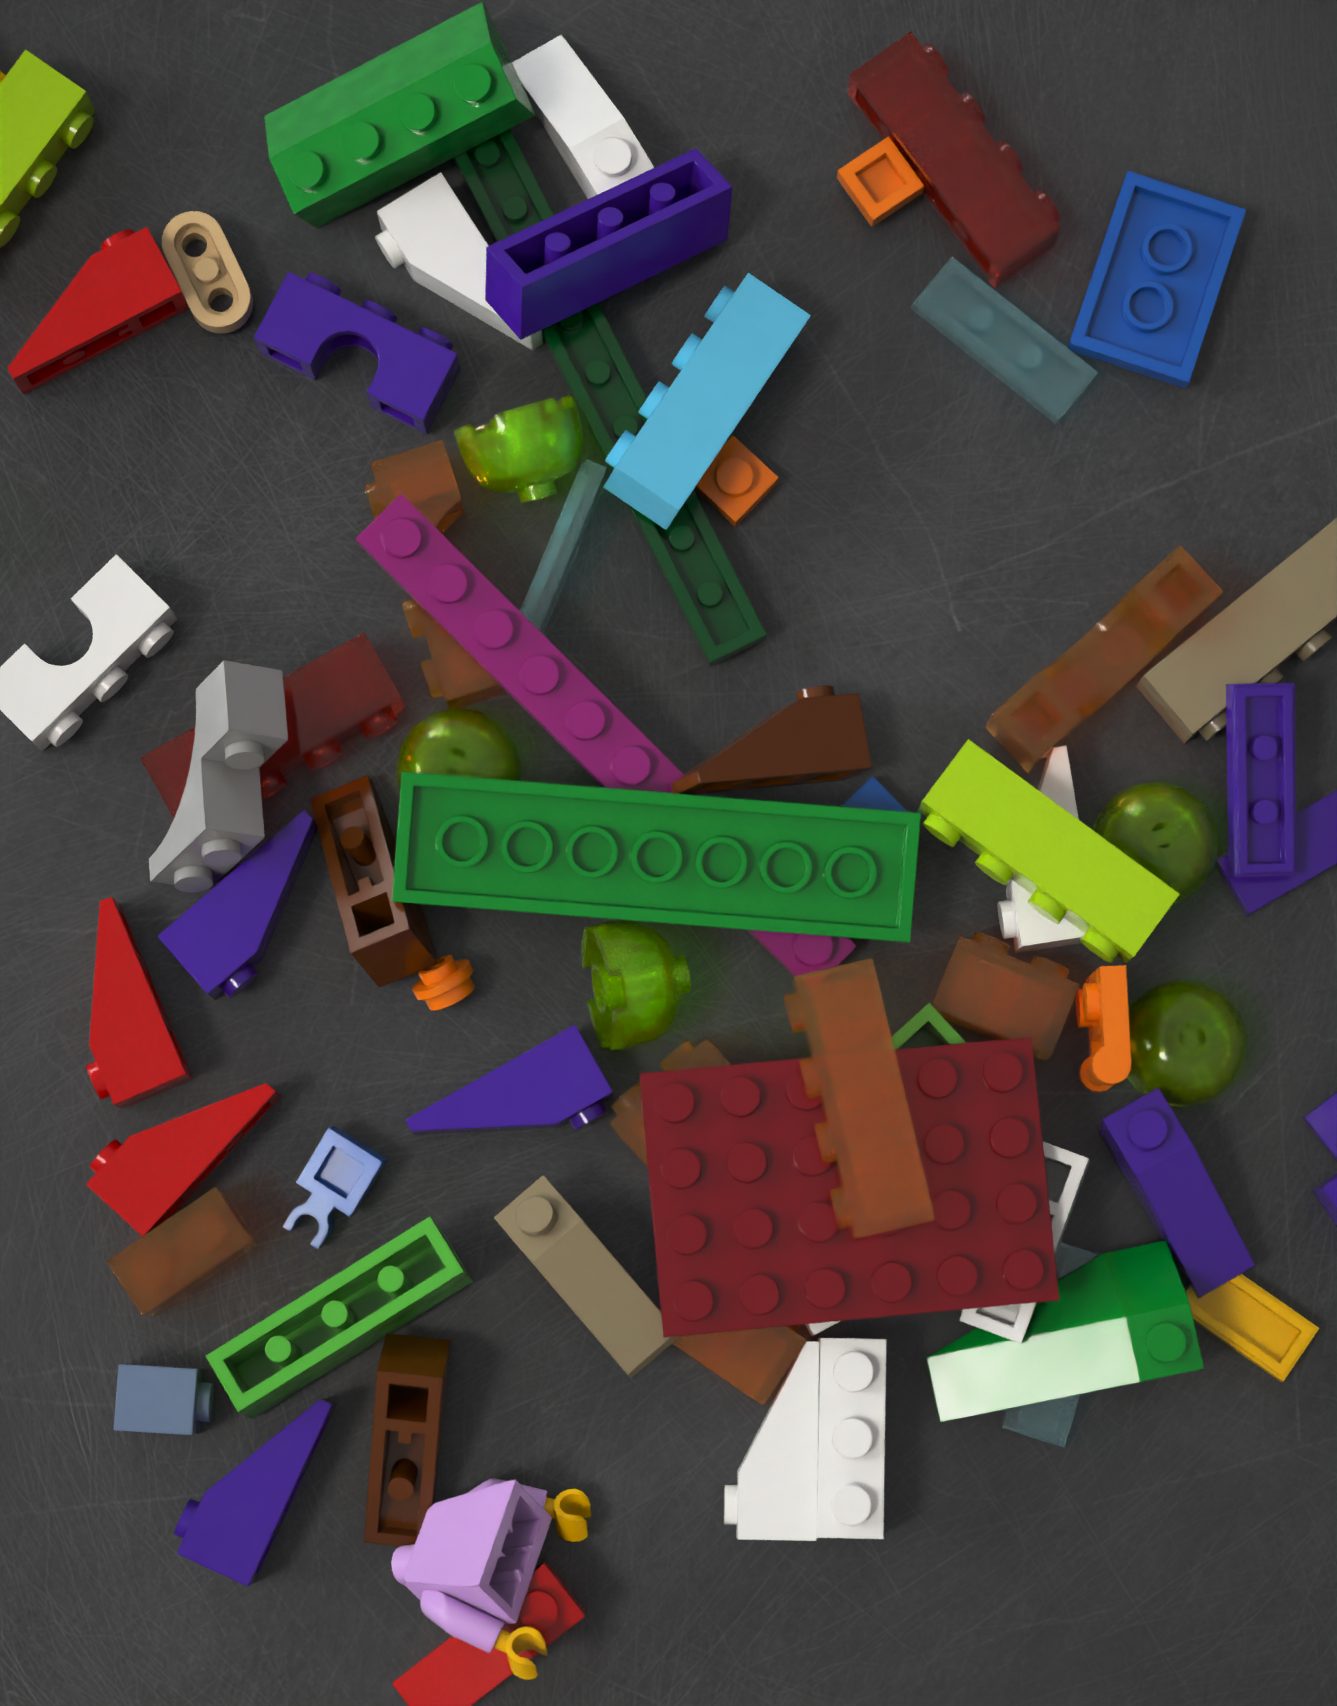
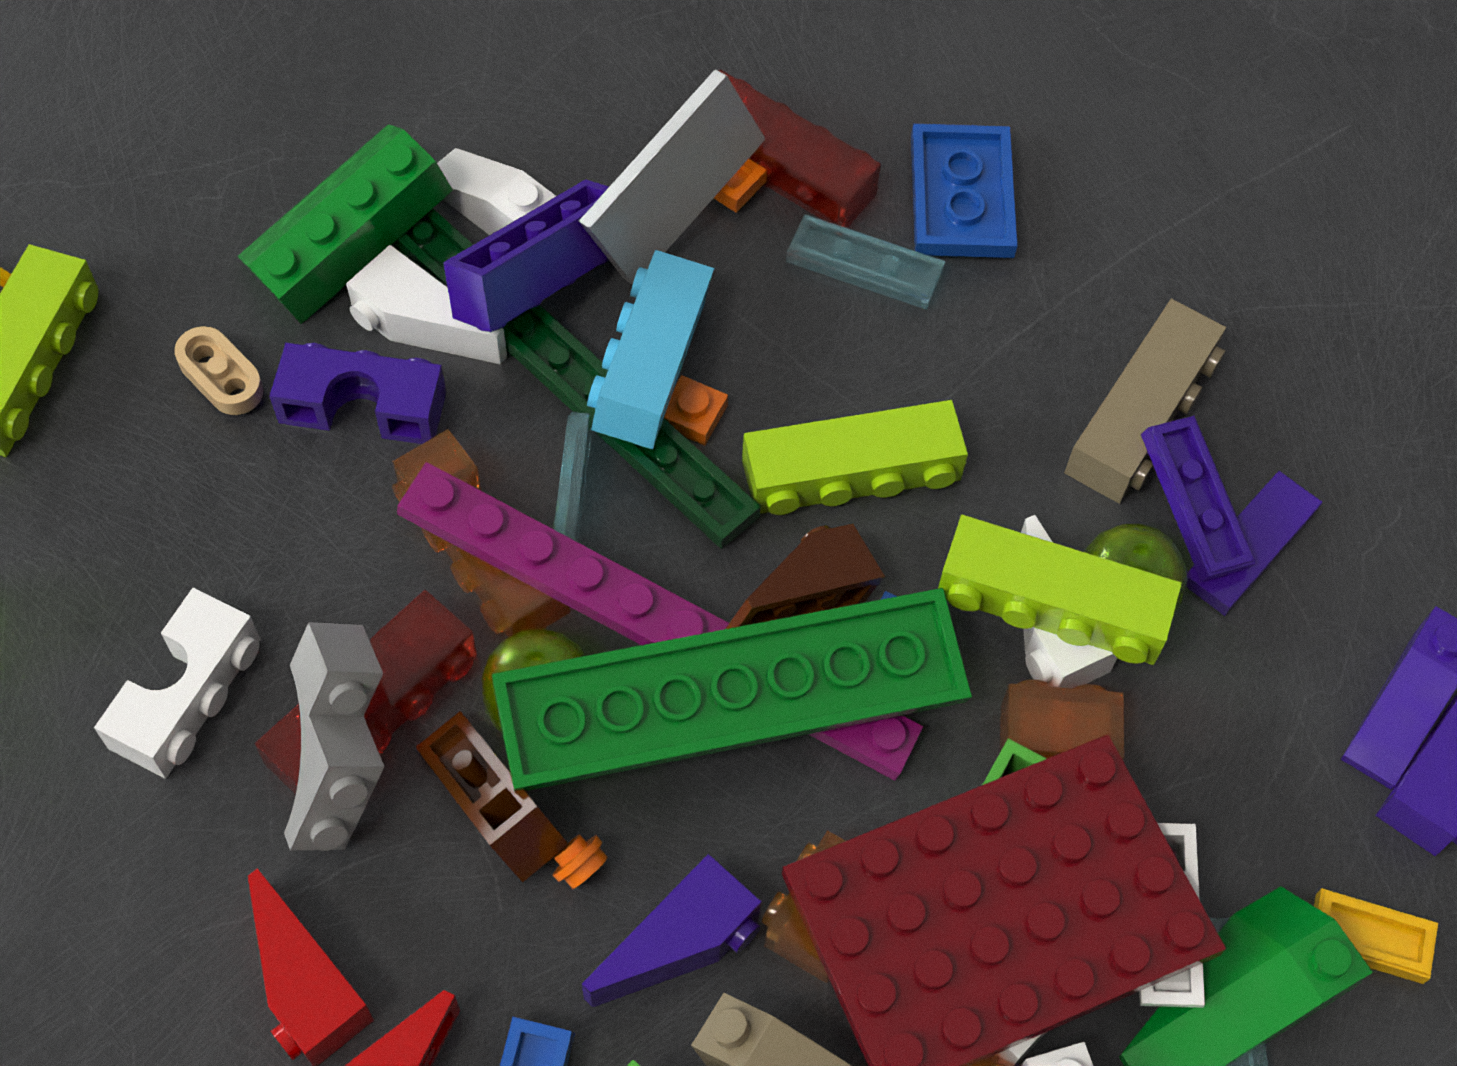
camera: 20 degrees left, 20 degrees down
(106, 304) = (138, 414): red slope -> none
(235, 921) = (375, 865): dark purple slope -> none
(524, 448) = (516, 418): clear neon green cylinder -> none
(633, 982) = (745, 805): clear neon green cylinder -> none
(797, 188) = (674, 177): none -> light grey tile
(861, 1100) = (991, 820): clear orange brick -> none
(894, 604) = (854, 457): none -> lime brick
(1104, 659) = (1045, 436): clear orange arch -> none
(1105, 1011) = (1160, 720): orange plate -> none
(1176, 1191) = (1268, 837): dark purple slope -> none
(1191, 1070) = (1221, 724): clear neon green cylinder -> none

